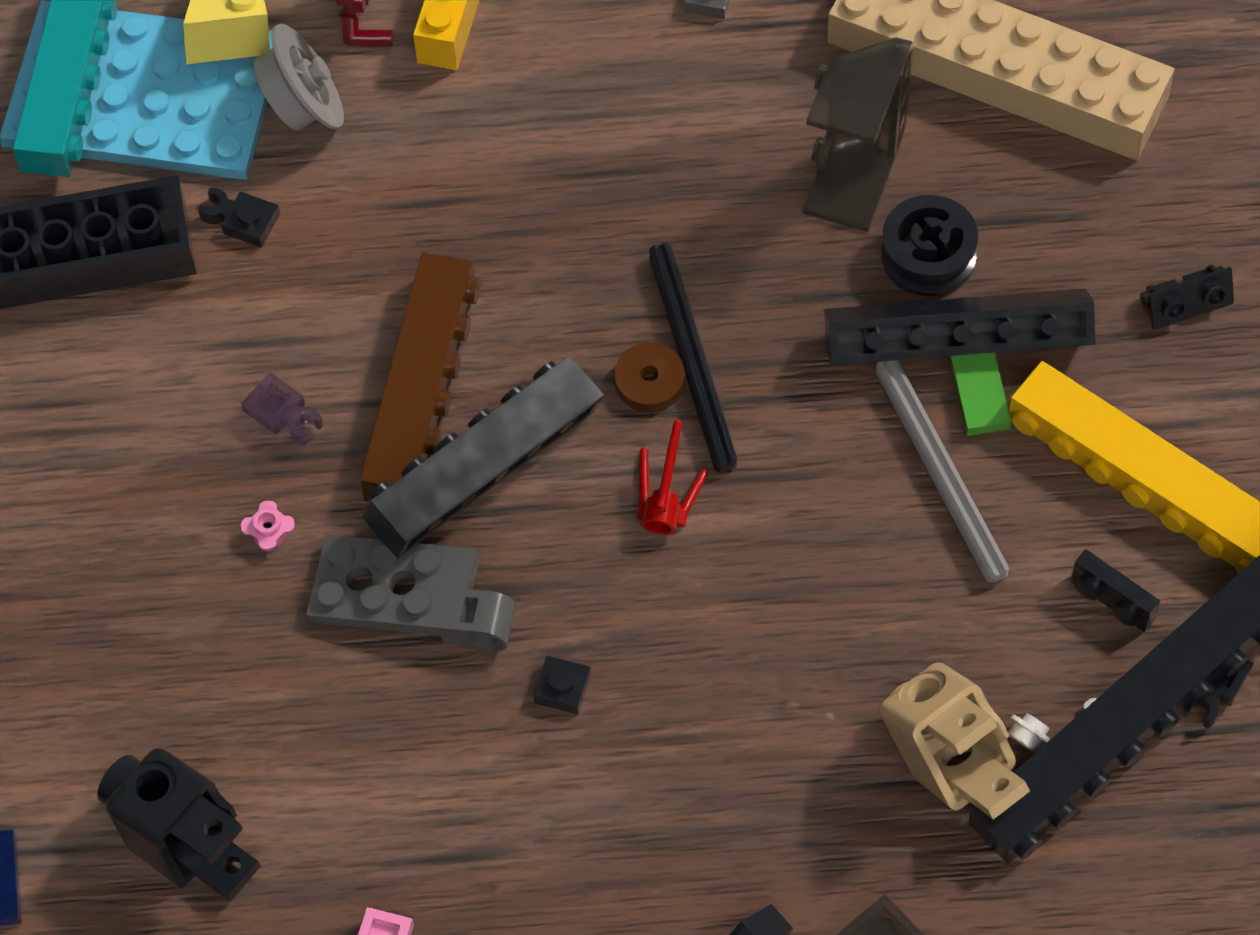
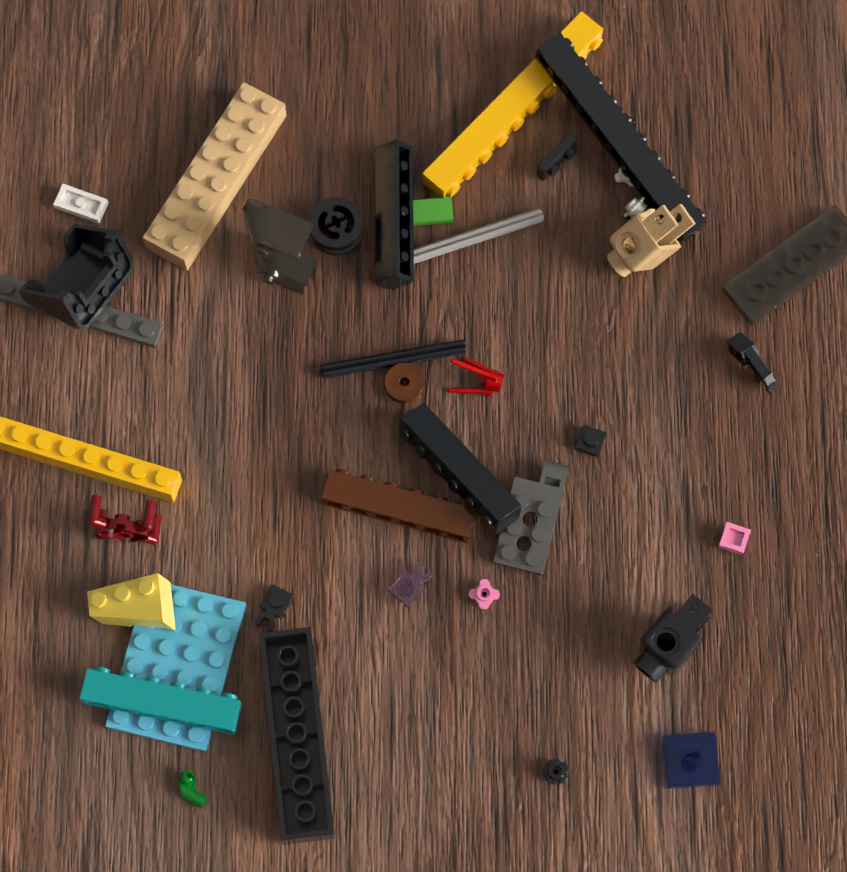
camera: 90 degrees left, 10 degrees up
(297, 82) = (196, 564): light grey wheel -> none
(1194, 296) = (377, 90): black hinge -> none

